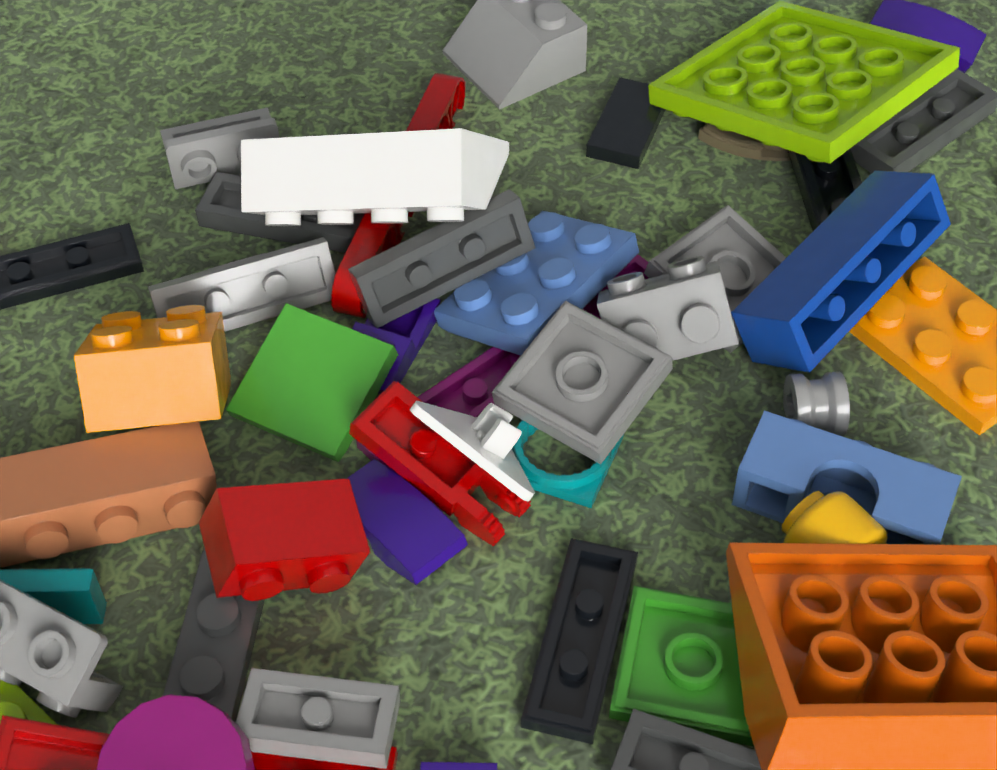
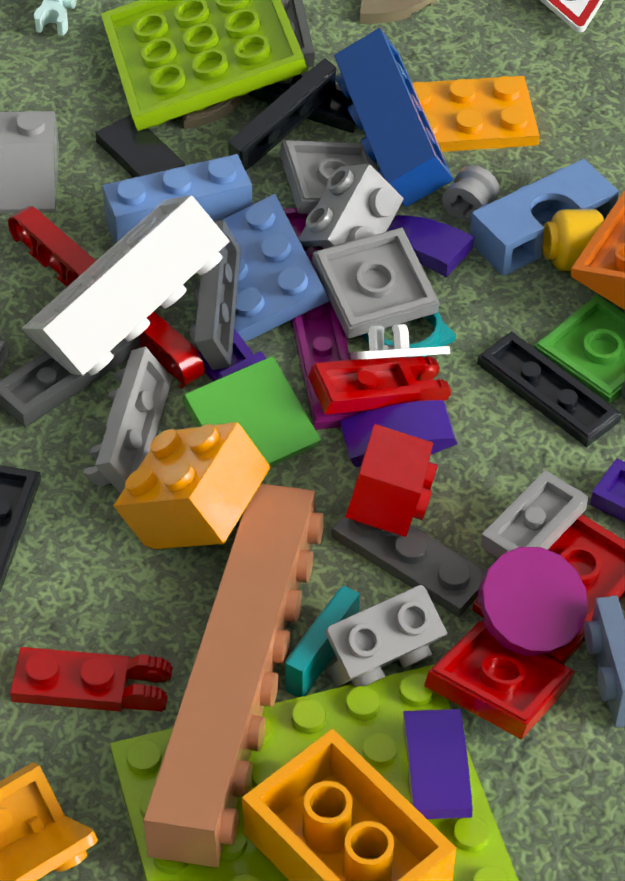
camera: 60 degrees left, 0 degrees up
(591, 178) = (216, 184): none -> medium blue arch
(702, 404) = (434, 242): none -> dark purple slope
(762, 185) = (284, 114): none -> black tile

